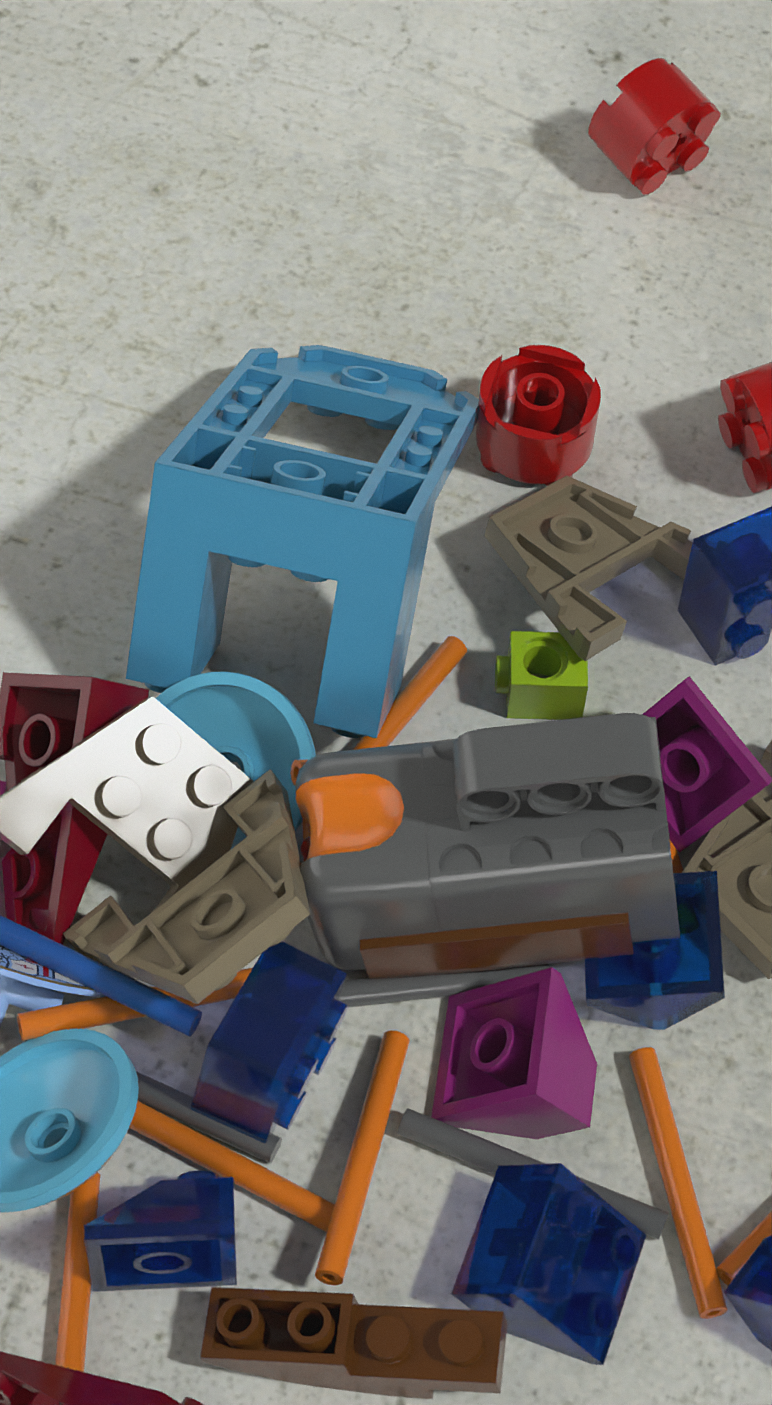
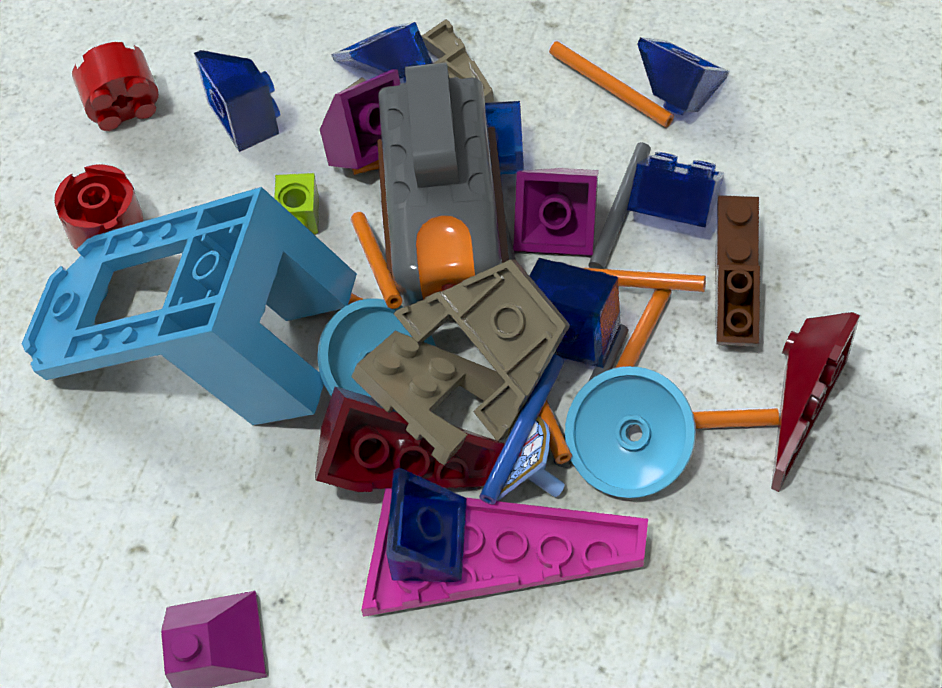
camera: 85 degrees left, 0 degrees up
(166, 1237) = (690, 355): clear blue slope -> none
(573, 542) = (201, 179): dark tan wing -> none
(678, 1184) = (615, 142): orange piece -> none

